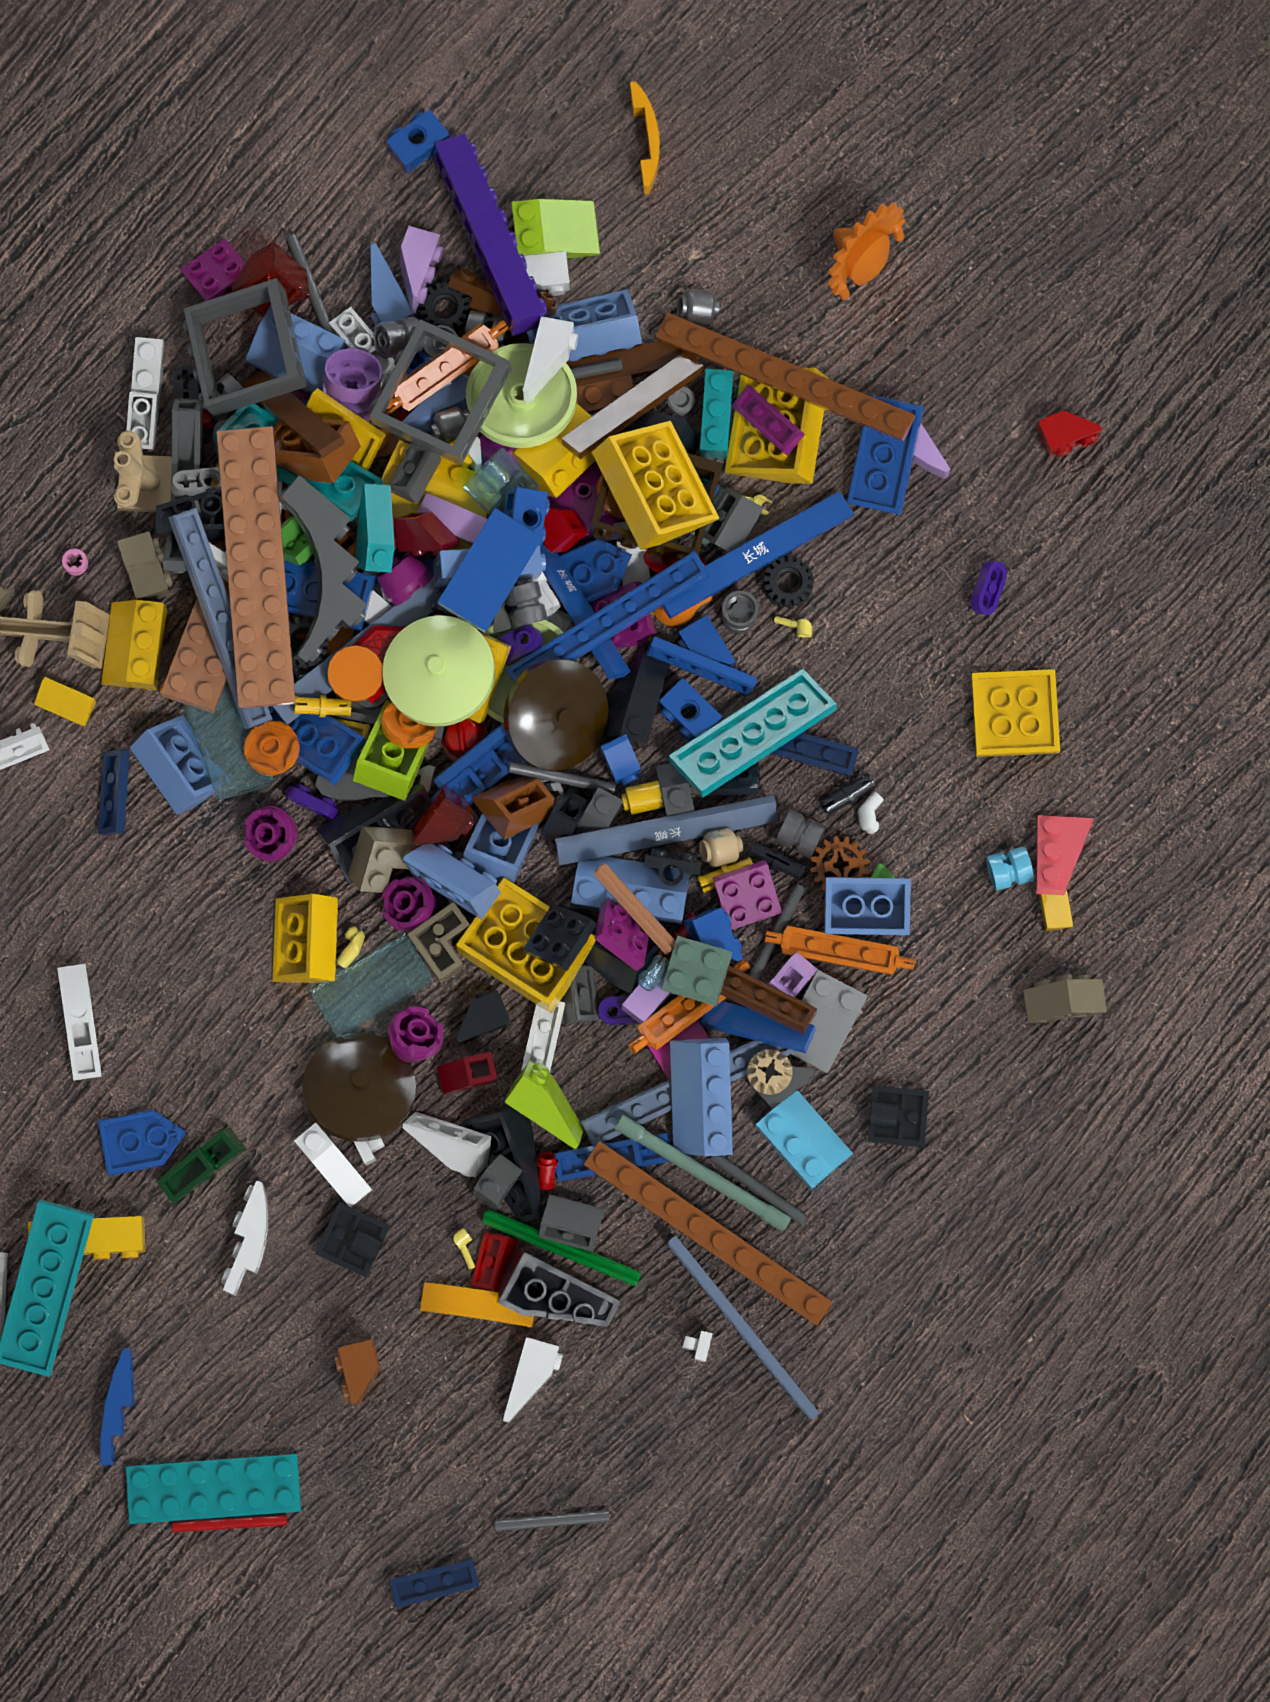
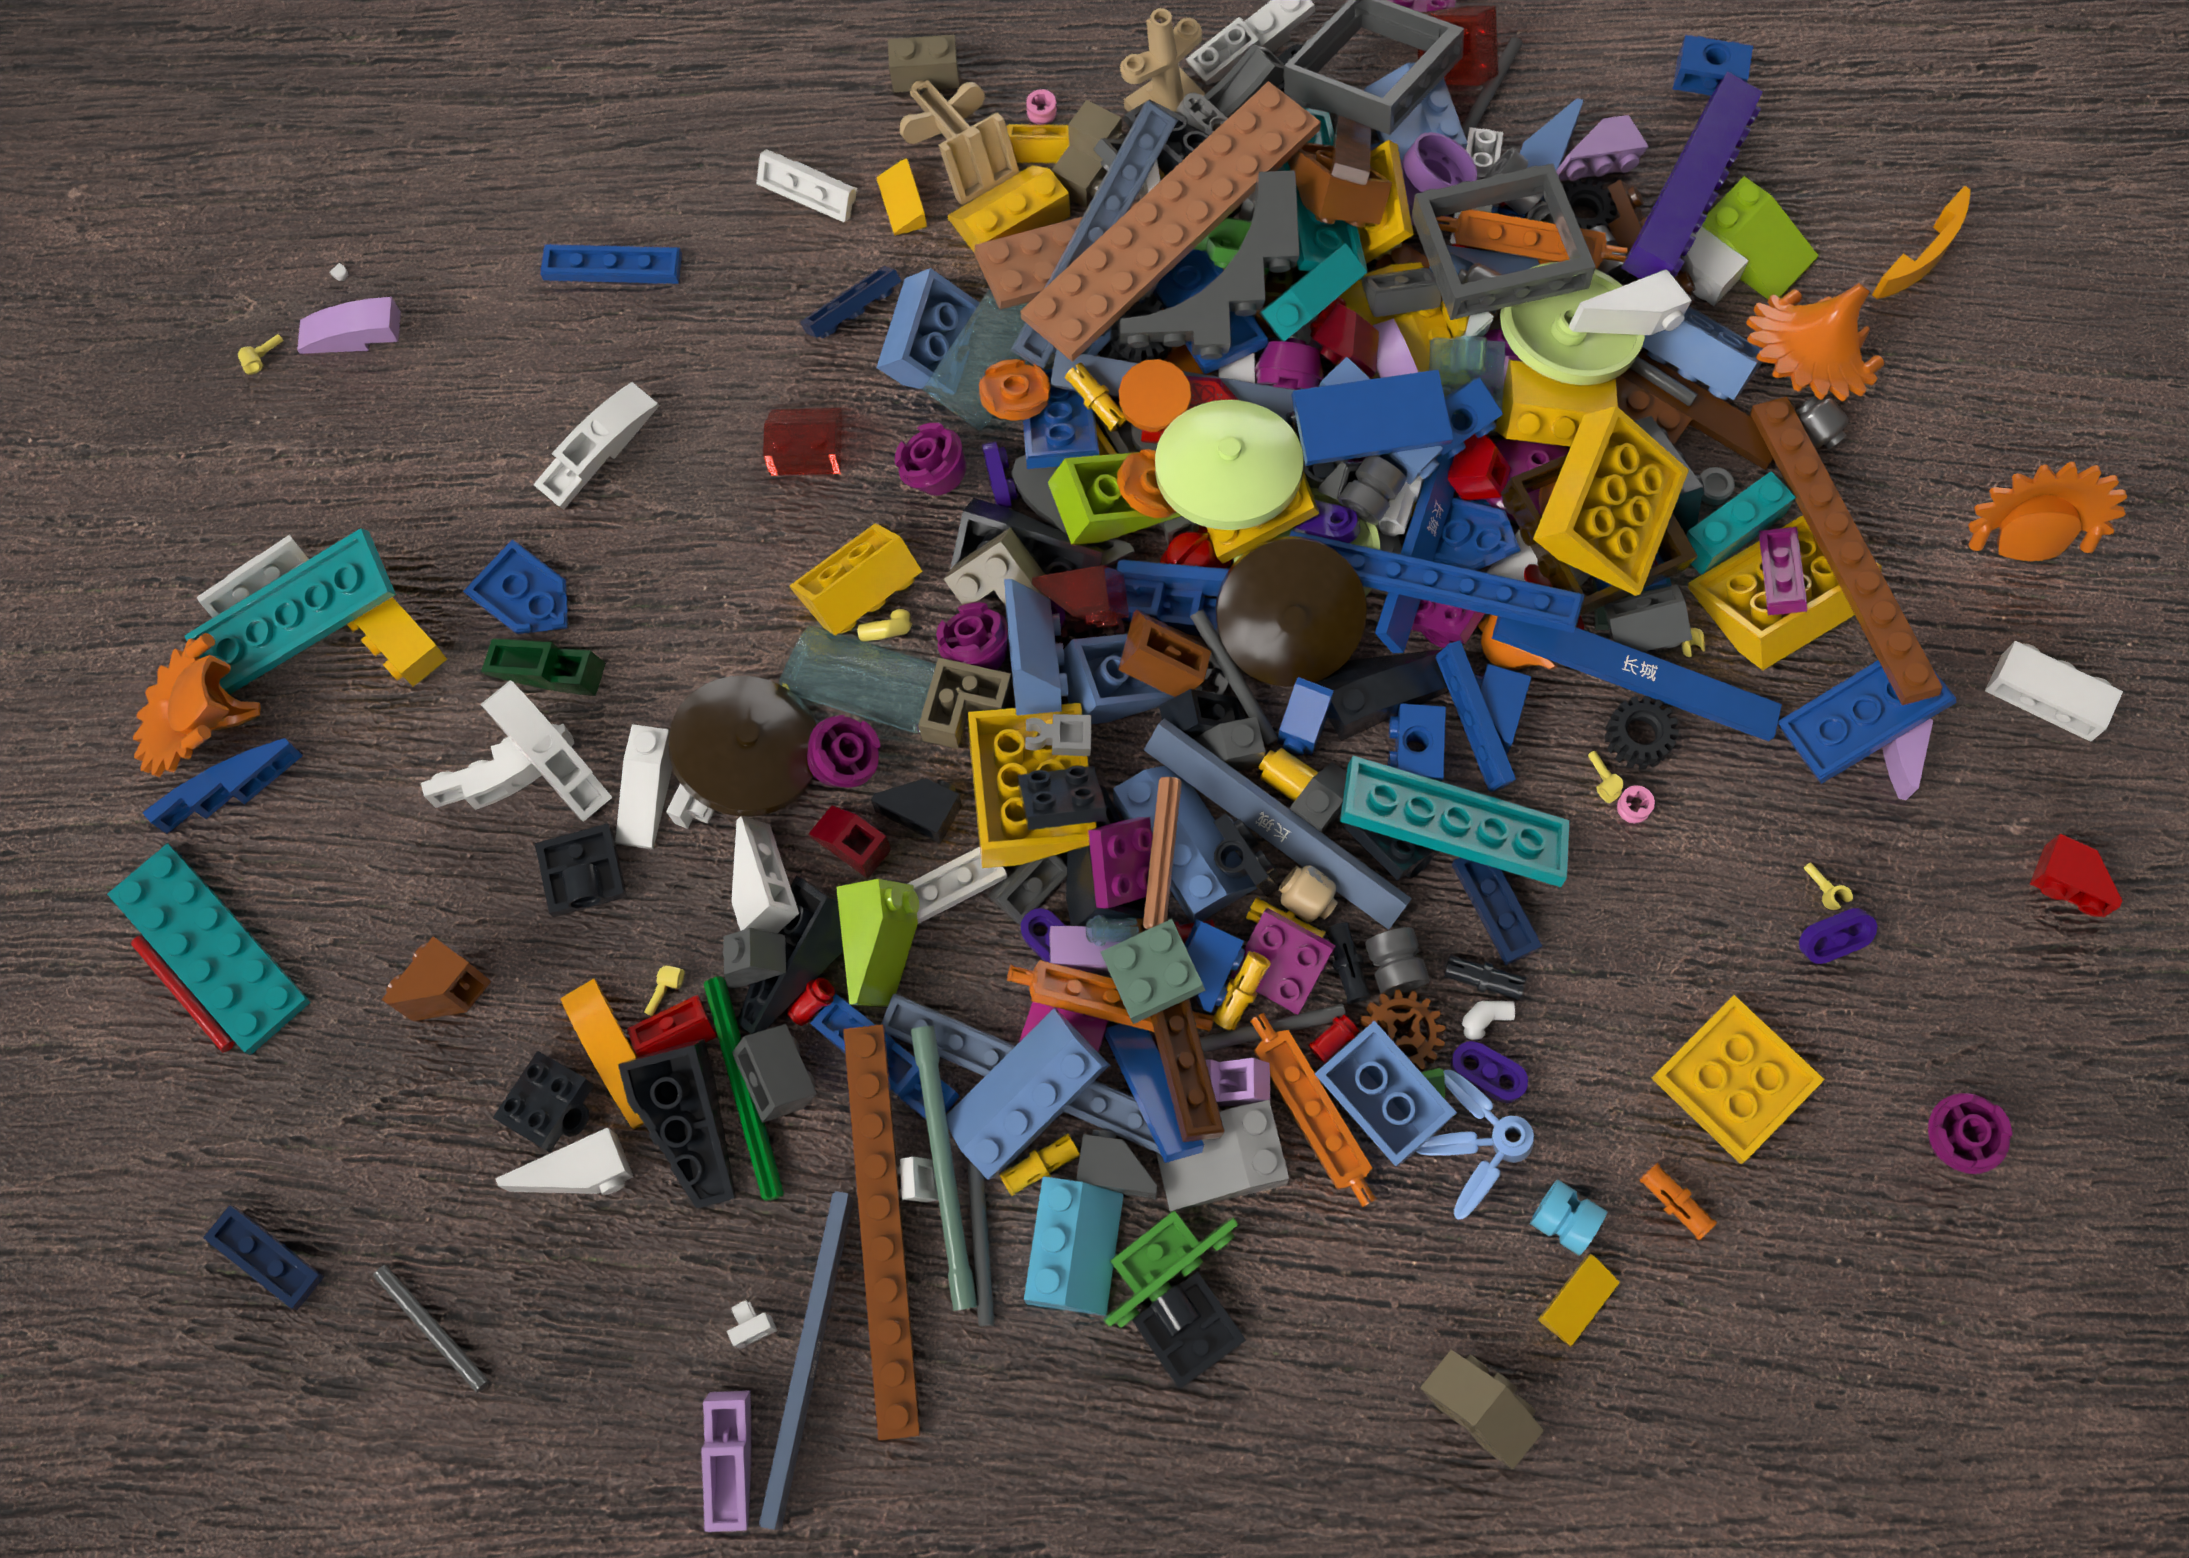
camera: 55 degrees right, 10 degrees down
(49, 1396) = (186, 707): none -> orange piece
(100, 582) = (1038, 142): none -> yellow slope
(183, 895) = (803, 441): none -> clear red slope
(269, 1201) = (546, 750): none -> white slope
(478, 1362) = (546, 1103): none -> black plate
(520, 902) = (1067, 735): none -> light grey plate
(632, 405) = (1677, 432): tile -> none
(650, 266) = (1816, 342): none -> orange piece
(697, 1192) = (917, 1179): none -> white tile
(739, 612) = (1565, 708): flat silver wheel -> none
(744, 931) = (1241, 990): none -> yellow pin
(744, 1121) = (1039, 1164): none -> yellow pin
(760, 1413) = (726, 1460): none -> lavender slope
(776, 1083) = (1105, 1160): tan gear -> none
(811, 904) = (1334, 1038): none -> red pin
(832, 627) = (1628, 795): none -> bright pink bush
(848, 1099) = (1158, 1257): none -> bright green bracket
(899, 838) = (1490, 1068): none -> dark purple plate
(927, 884) = (1467, 1142): none -> light blue plant
(958, 566) = (1828, 889): none -> light yellow hand
(960, 339) = (2054, 690): none -> white brick
(1049, 803) = (1678, 1201): none -> orange pin
(1058, 850) = (1637, 1254): coral wing -> none
(1144, 624) = (1969, 1133): none -> magenta cone

